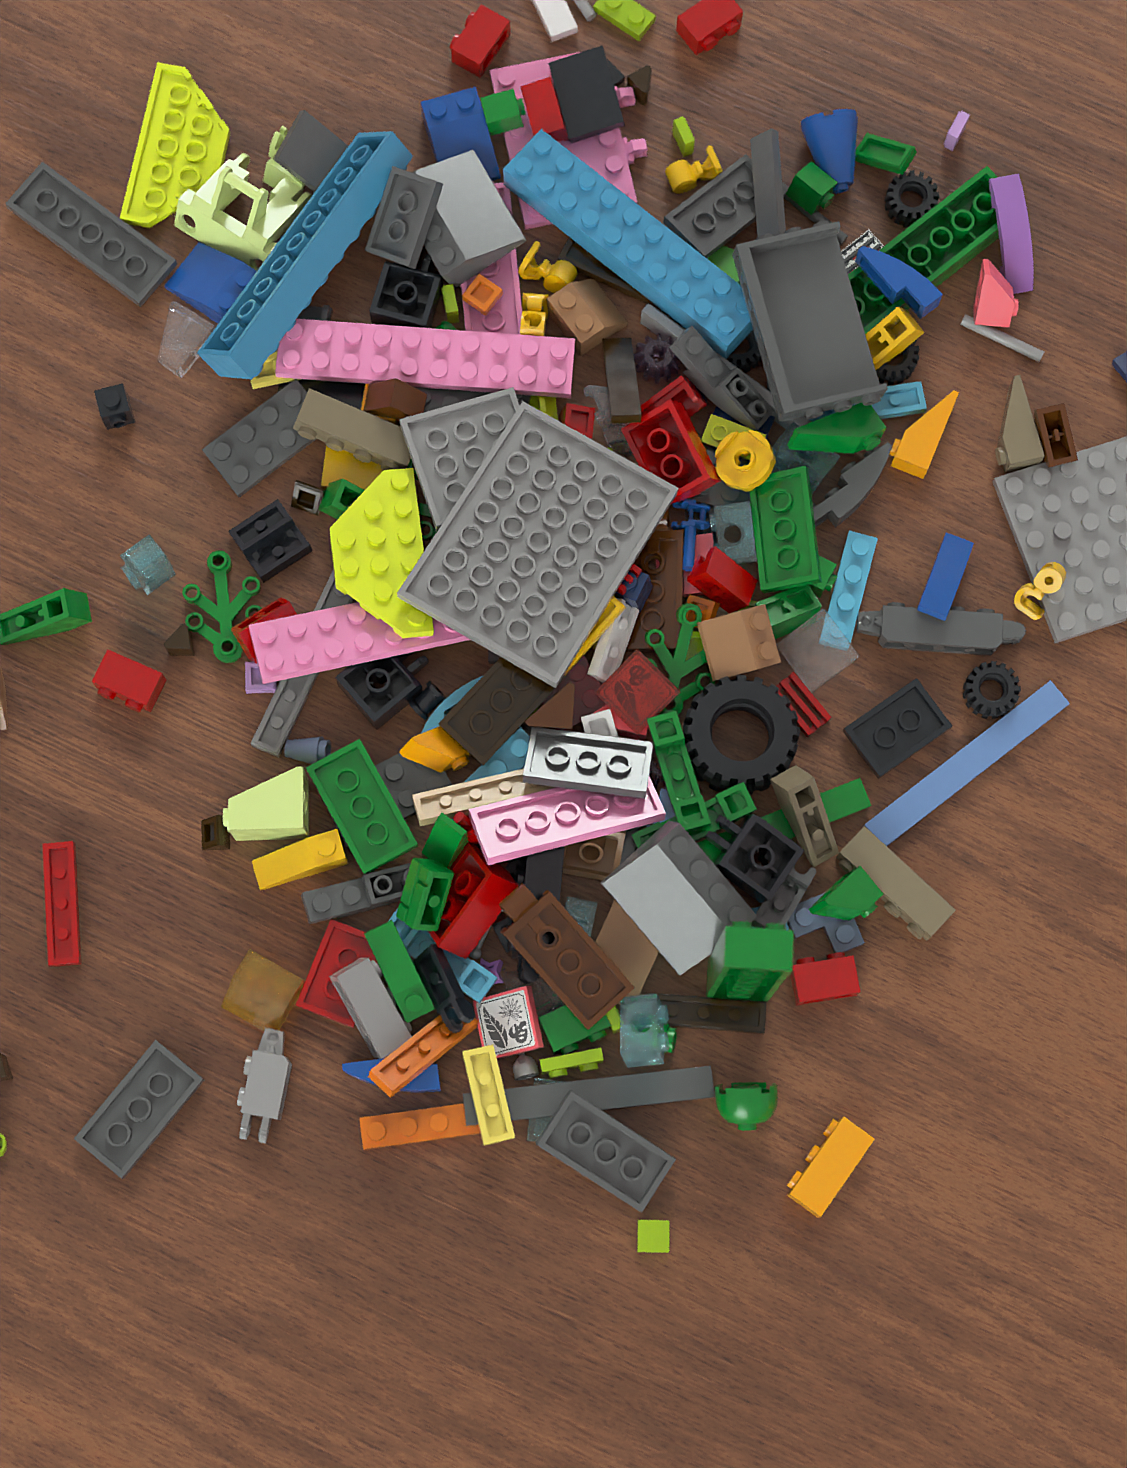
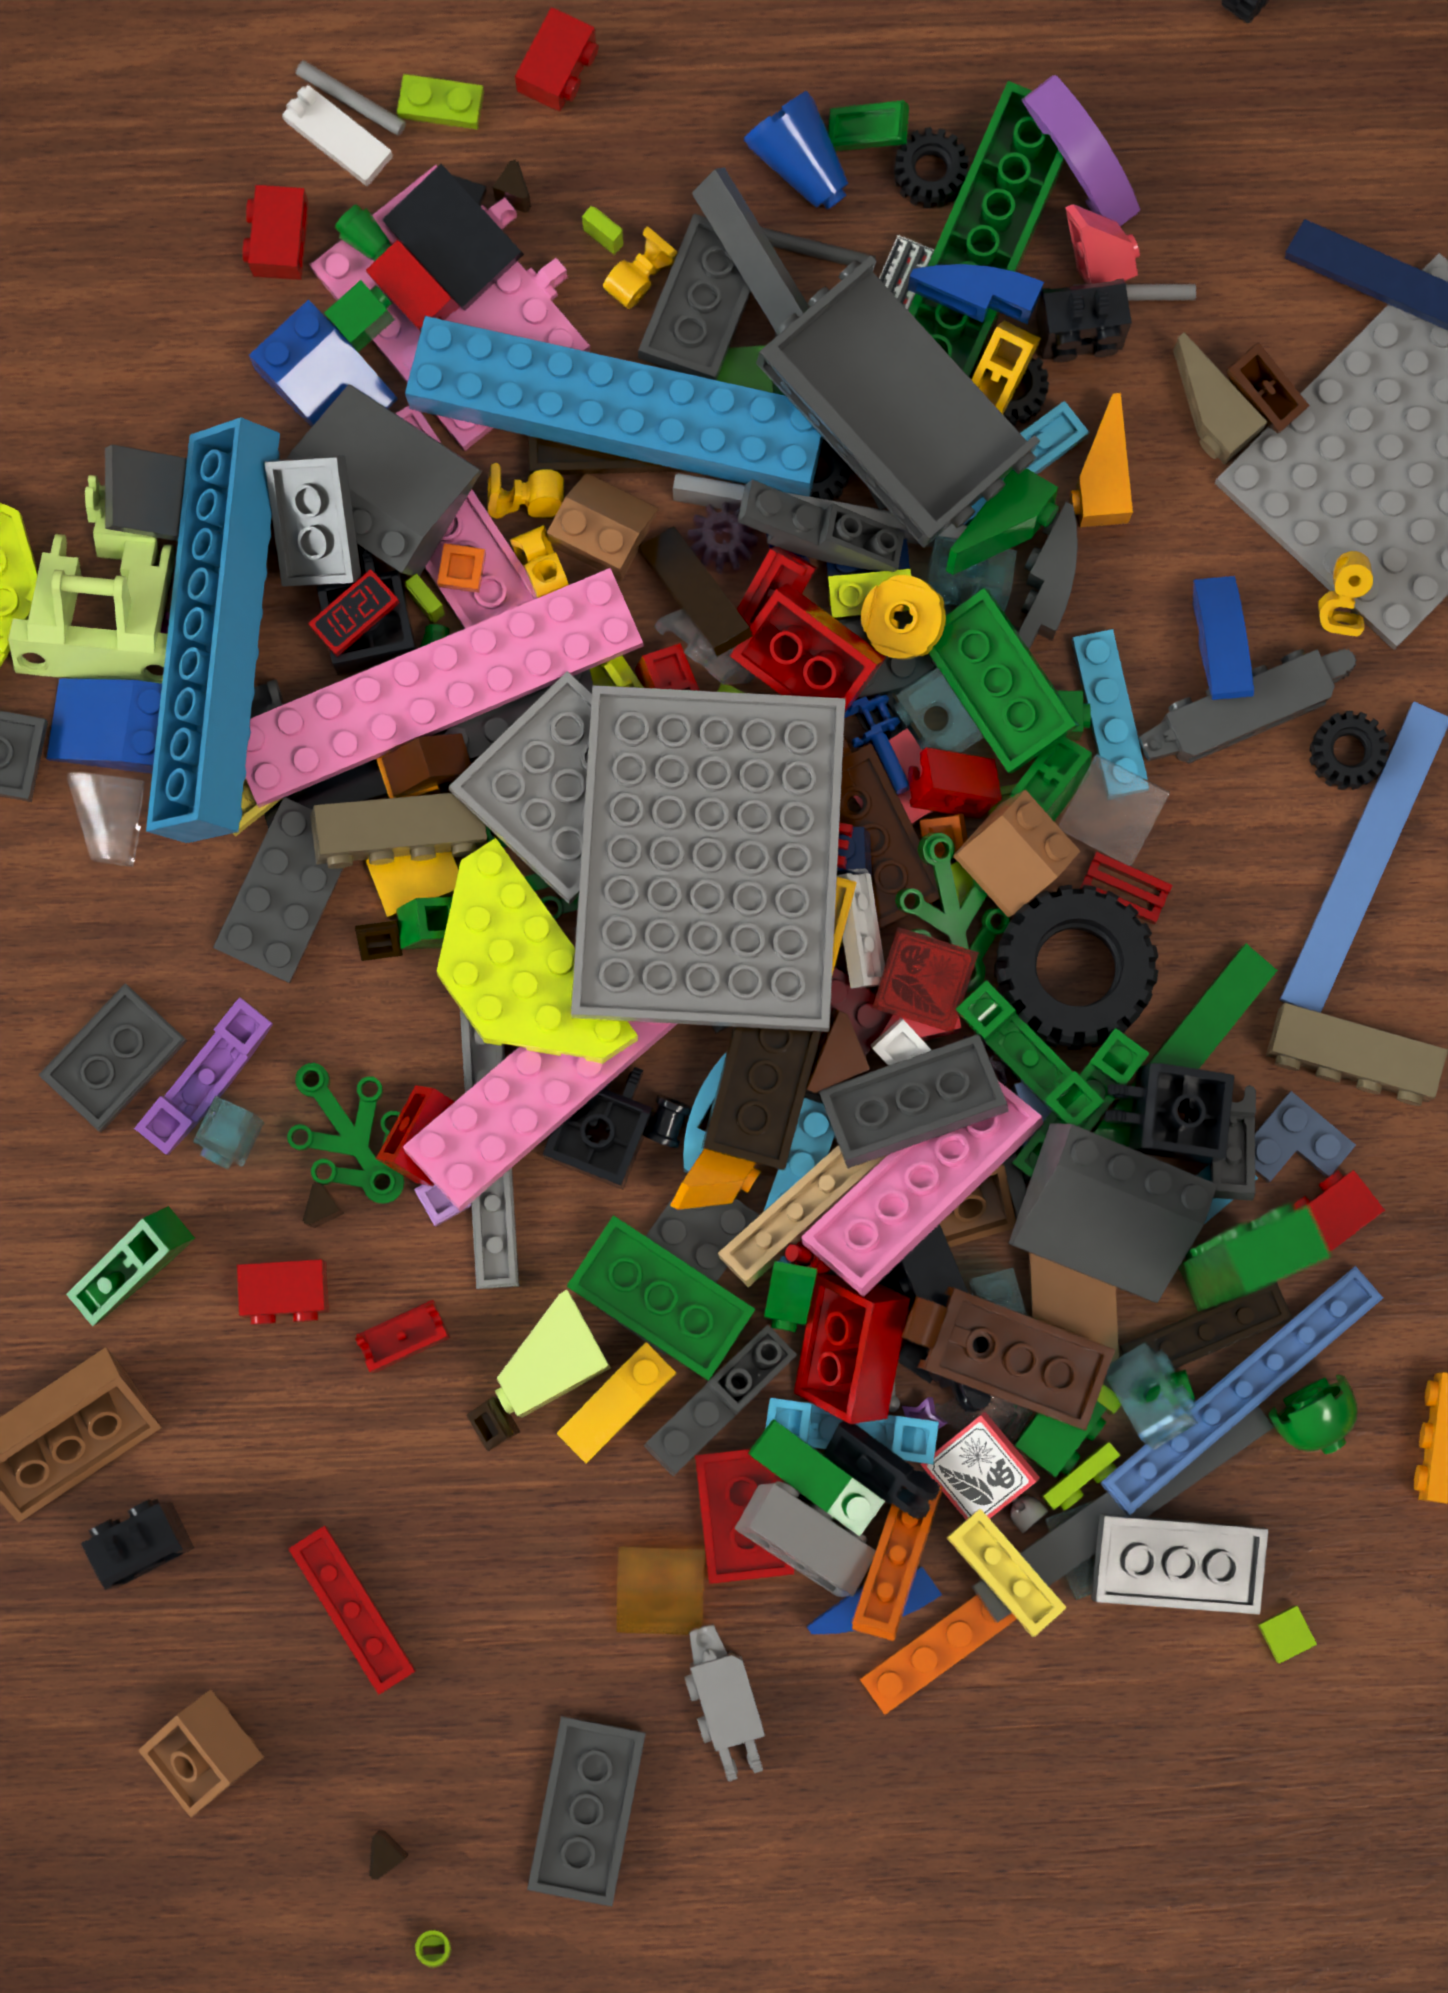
camera: 25 degrees left, 5 degrees up
(103, 487) = (113, 1058): none -> dark grey tile
(114, 406) = (72, 949): black brick -> none
(161, 524) = (207, 1076): none -> medium lavender slope
(187, 750) = (402, 1336): none -> red hinge
(270, 540) = (361, 1018): black slope -> none
(308, 749) = (554, 1259): sand blue cone -> none
(398, 286) = (353, 613): none -> tile
(425, 894) = (799, 1368): green brick -> none
(531, 63) = (362, 232): none -> green cone
(708, 1061) = (1245, 1389): none -> medium blue tile
(805, 813) = (1208, 1025): dark tan slope -> none
(812, 188) = (802, 218): green brick -> none
(849, 897) = (1311, 1099): green slope -> none
(897, 728) = (1259, 857): black plate -> none
(956, 130) = (941, 49): lavender tile -> none
(958, 336) = (1083, 320): none -> black hinge

